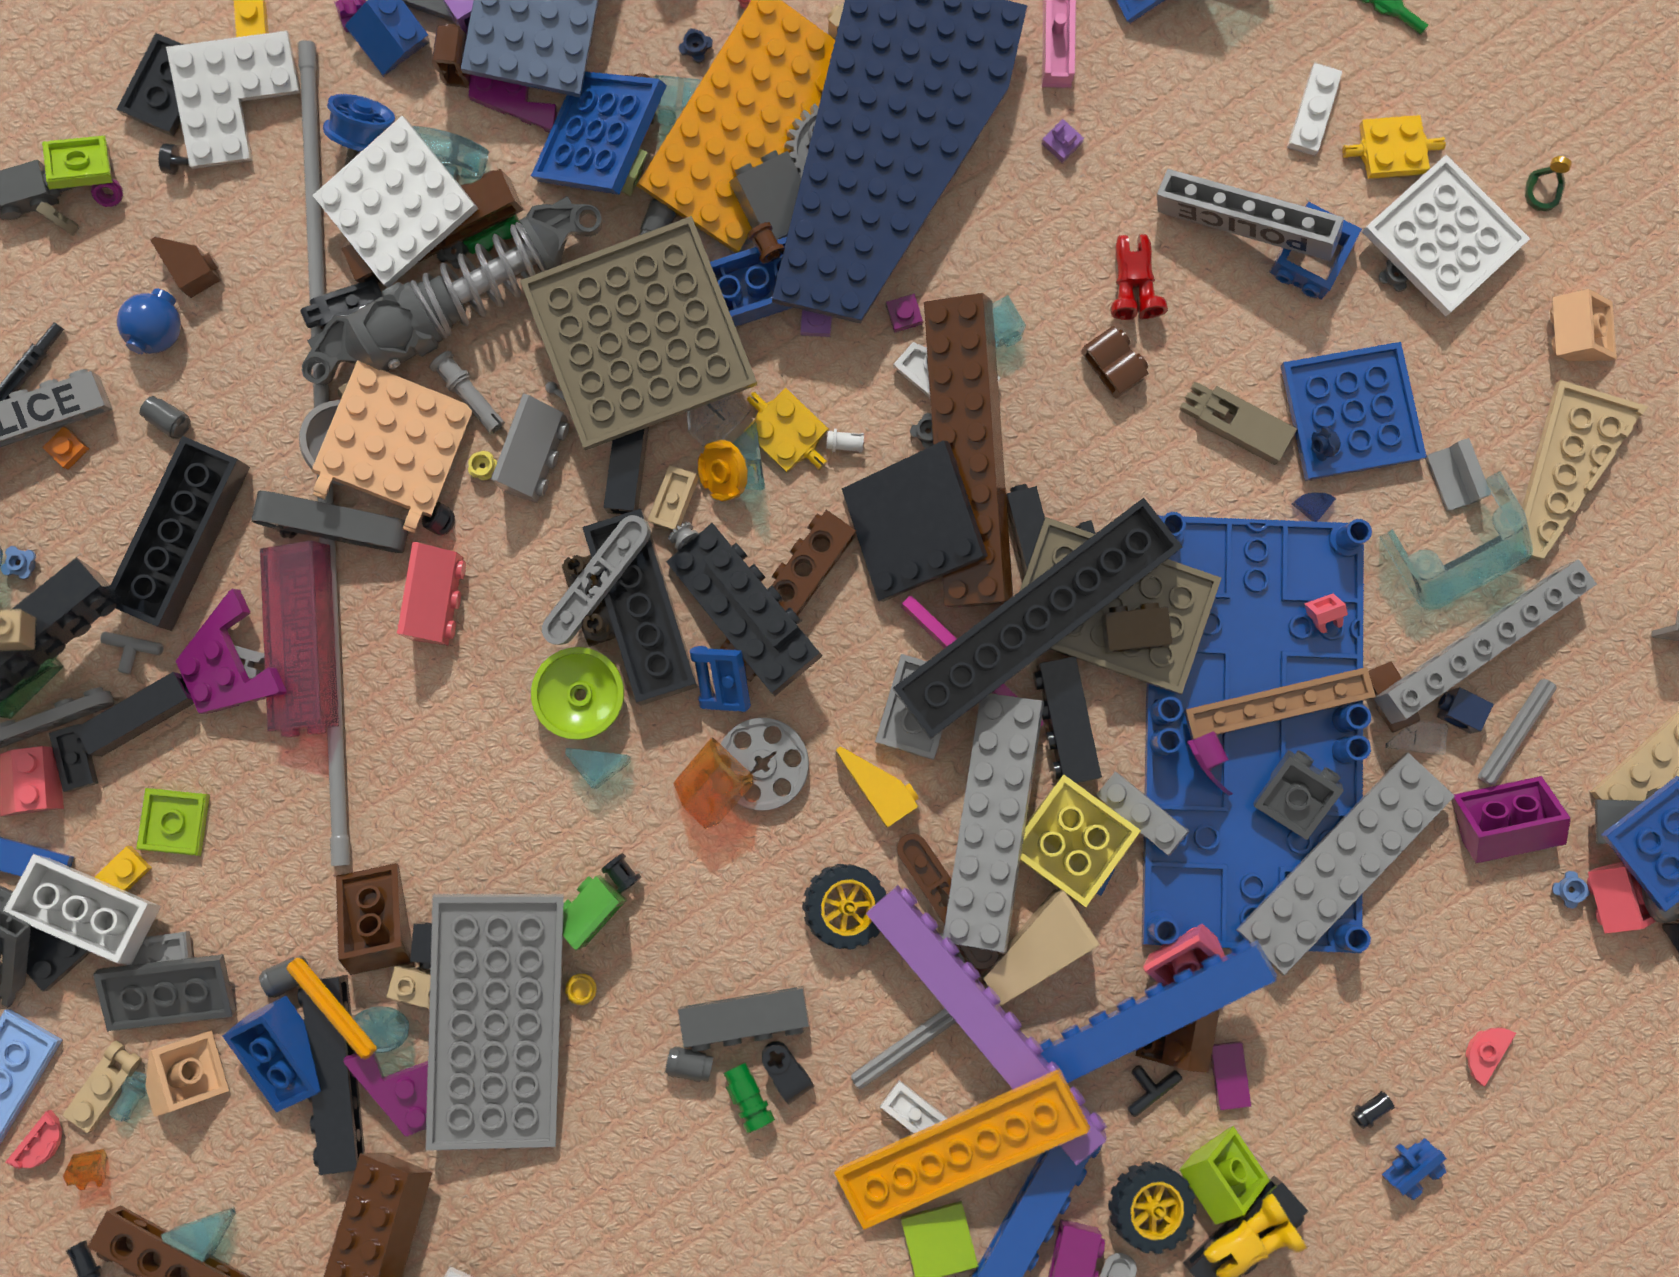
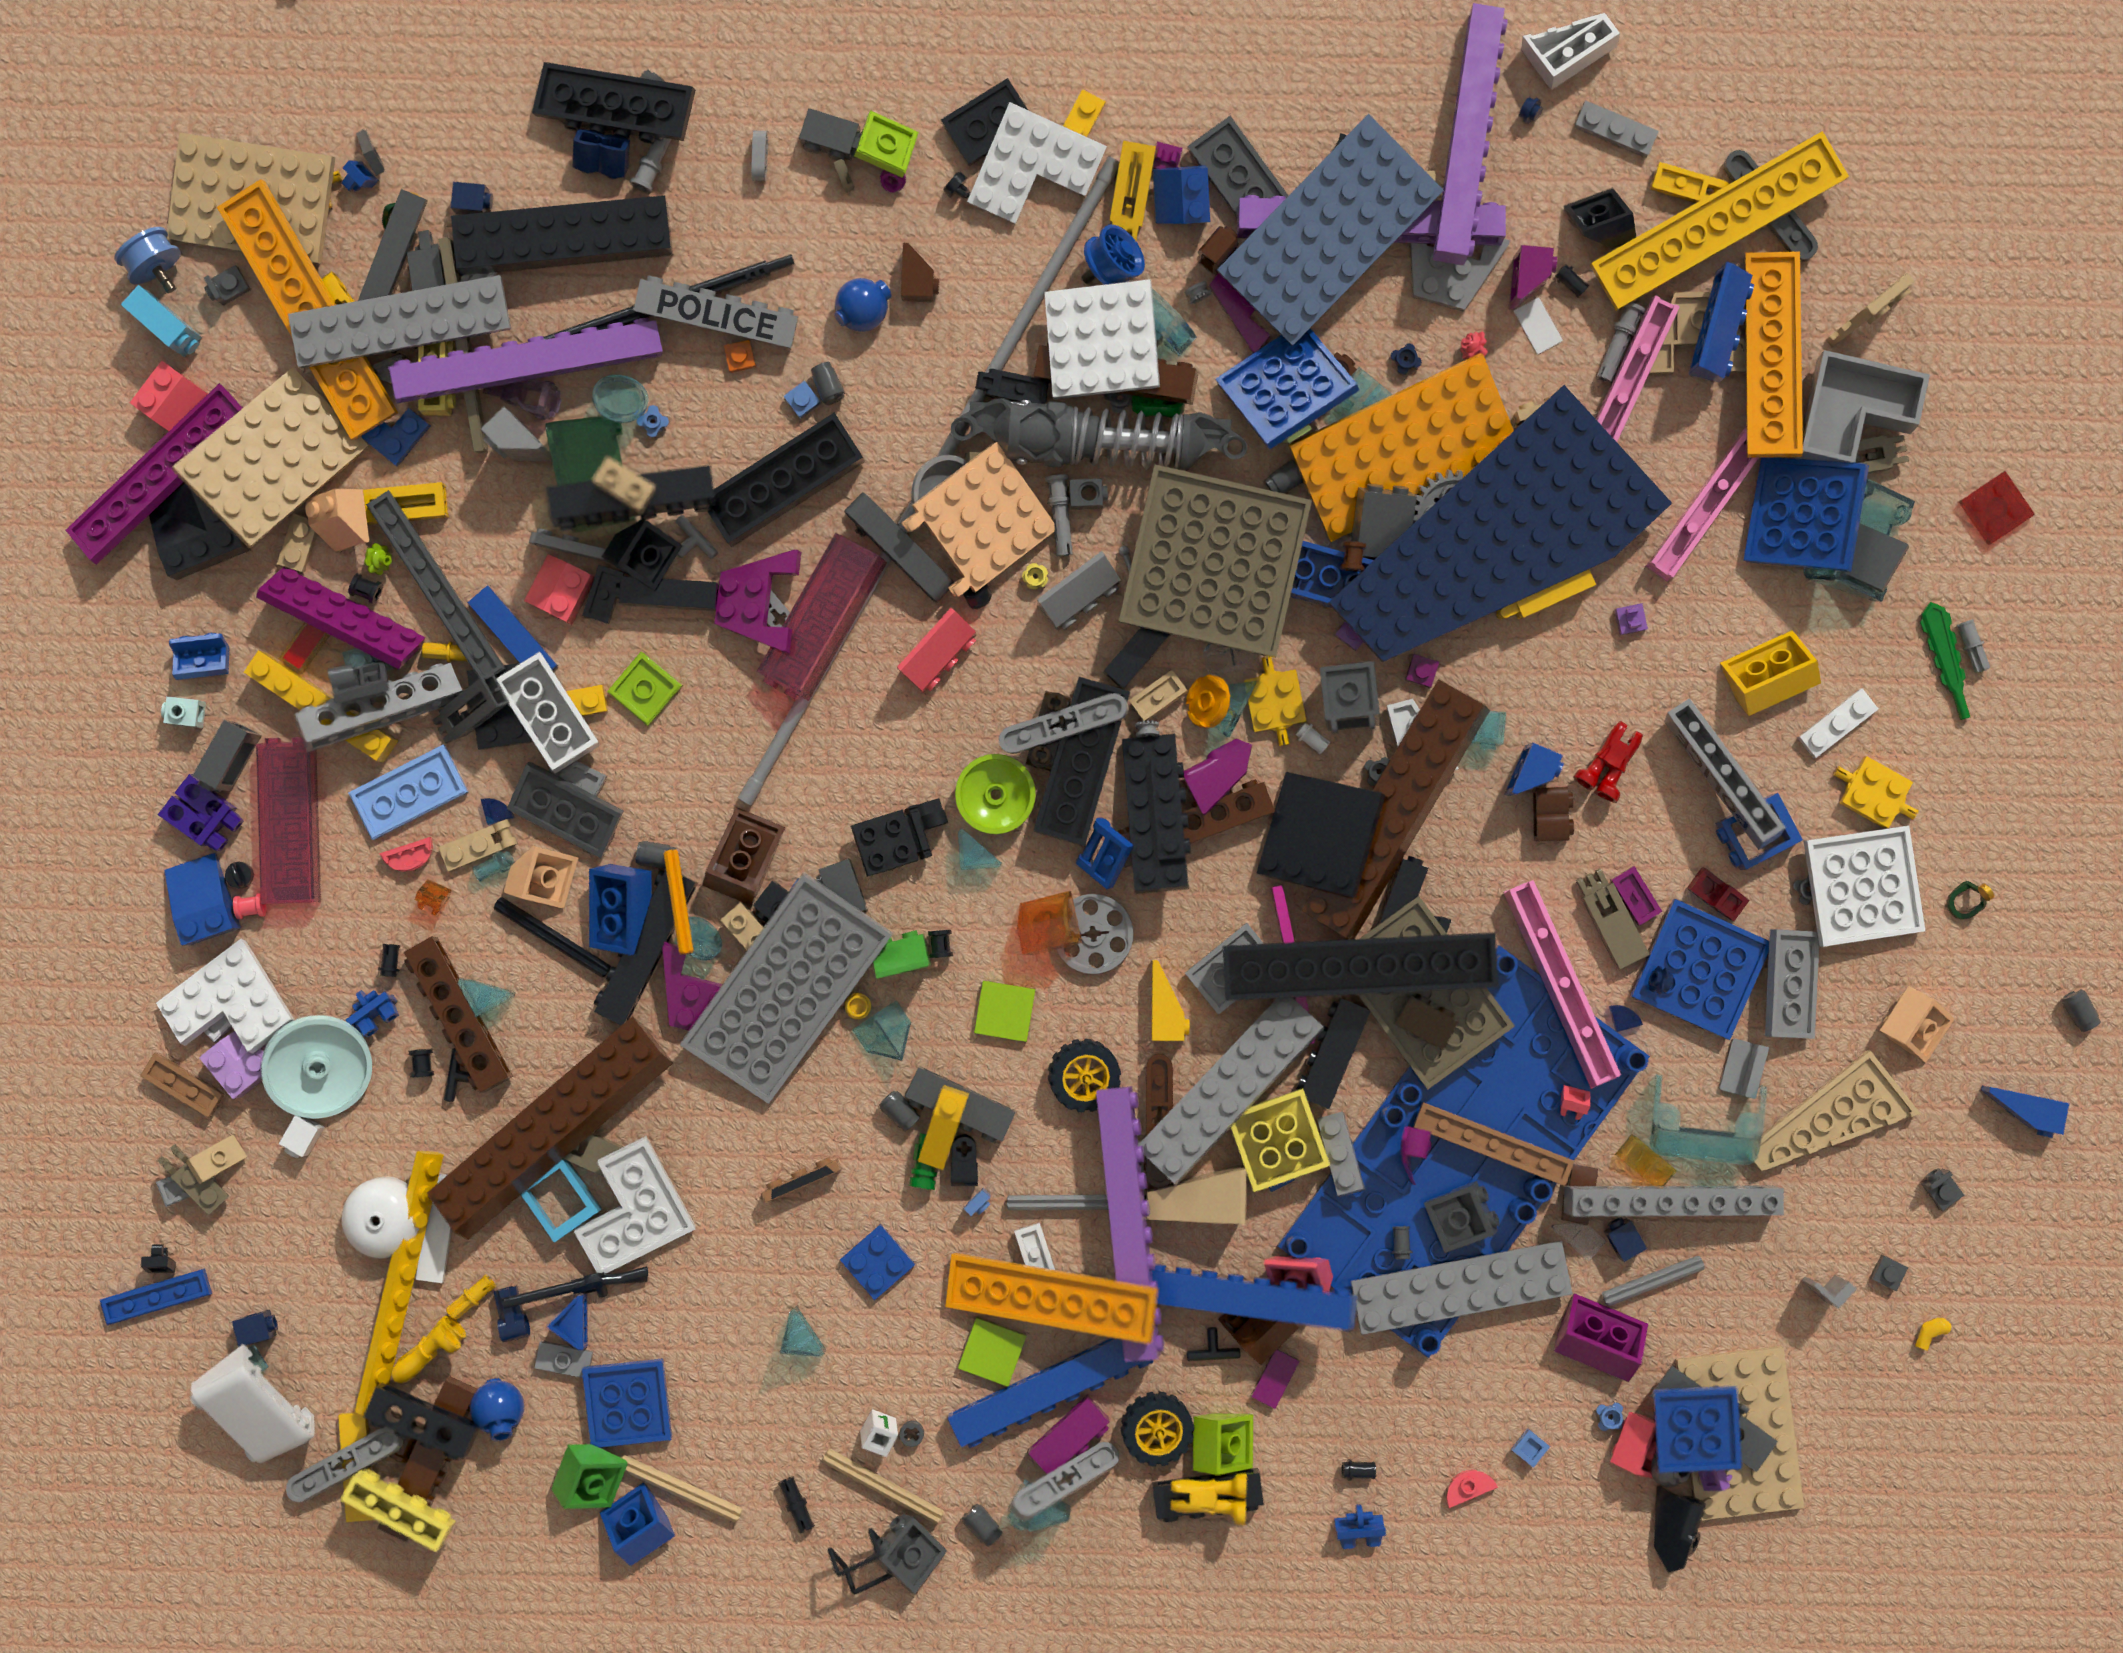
camera: 35 degrees right, 5 degrees up
(77, 690) = (642, 552): none -> black slope
(98, 1040) = (495, 811): none -> clear blue tile
(152, 448) = (802, 399): none -> medium blue plate
(233, 1127) = (552, 937): none -> black axle
(335, 49) = (1132, 182): none -> yellow hinge
(462, 109) = (1197, 292): none -> light grey bush
(467, 354) = (1077, 501): none -> dark grey brick
(486, 876) = (843, 881): none -> dark grey slope
(510, 801) = (896, 838): none -> black plate
(624, 996) = (885, 1032): none -> clear light blue slope
(636, 1199) = (801, 1178): none -> plate
(727, 896) = (1004, 1011): none -> lime tile
(740, 1051) = (943, 1127): none -> yellow slope
(767, 1230) = (877, 1261): none -> blue plate
(778, 531) = (1218, 773): none -> magenta panel
(827, 1103) = (978, 1203): none -> medium blue plate
(852, 373) = (1350, 696): none -> dark grey container
(973, 167) = (1548, 596): none -> yellow hinge
(1069, 327) = (1534, 768): none -> blue slope
(1224, 102) = (1771, 672): none -> yellow slope
(1237, 510) = (1562, 984): none -> bright pink tile
(1246, 384) = (1636, 895): none -> magenta plate
(1259, 859) = (1401, 1242): none -> dark grey pin
(1318, 334) = (1718, 894): none -> dark red slope
(1429, 625) = (1645, 1161): none -> clear yellow slope
(1446, 367) = (1792, 984): none -> light grey plate
(1519, 972) = (1530, 1447): none -> medium blue plate

